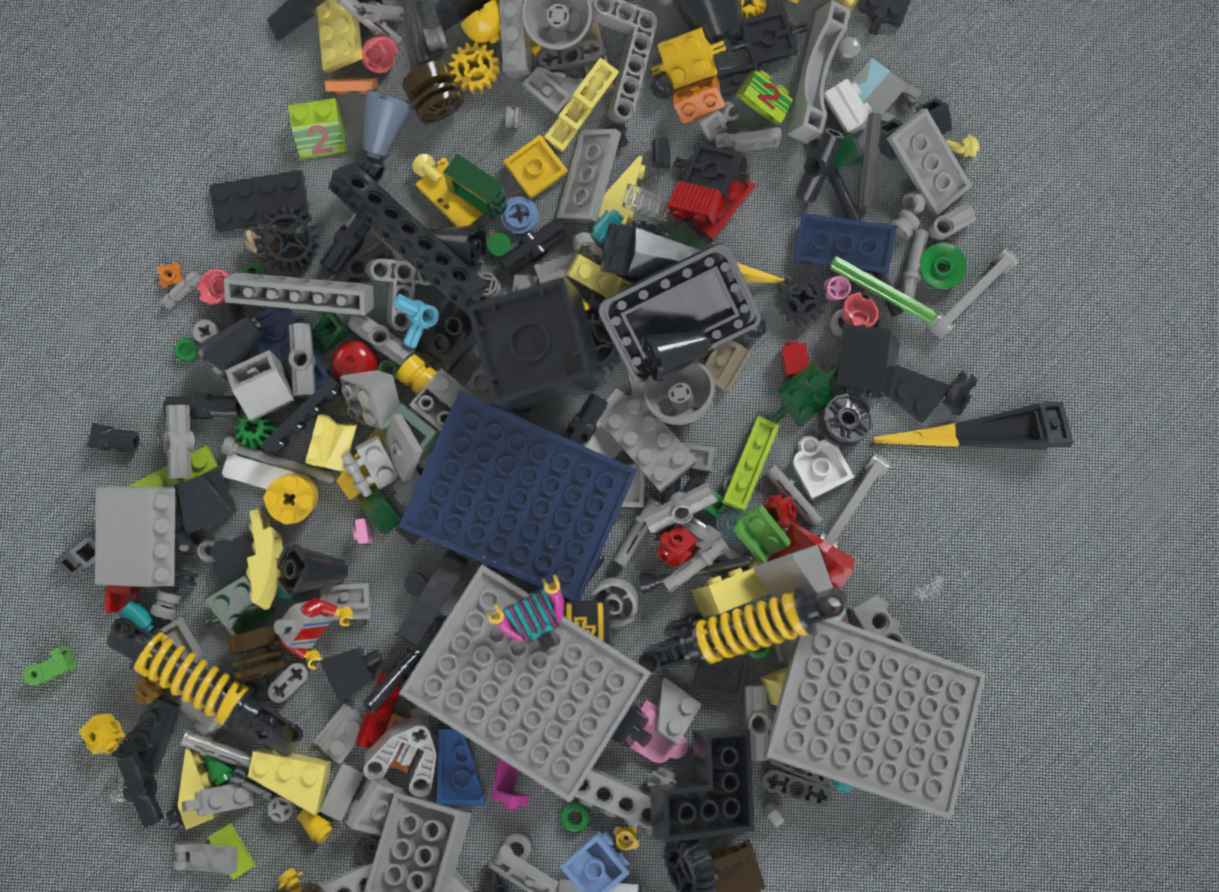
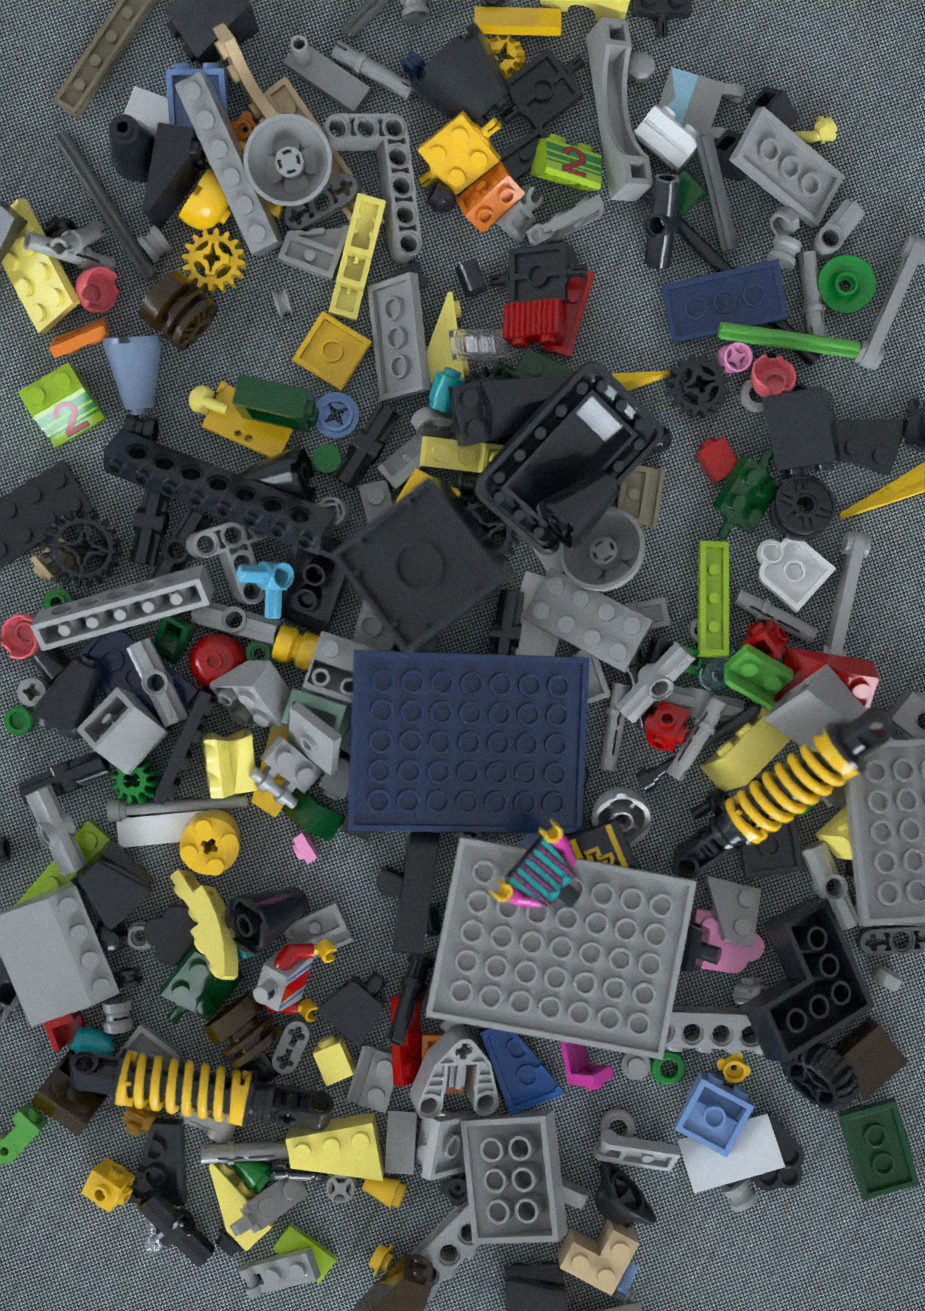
camera: 20 degrees left, 5 degrees up
(97, 657) = (63, 1102): none -> dark brown slope
(317, 705) = (333, 1059): none -> light yellow brick
(550, 804) = (635, 1066): none -> light grey plate

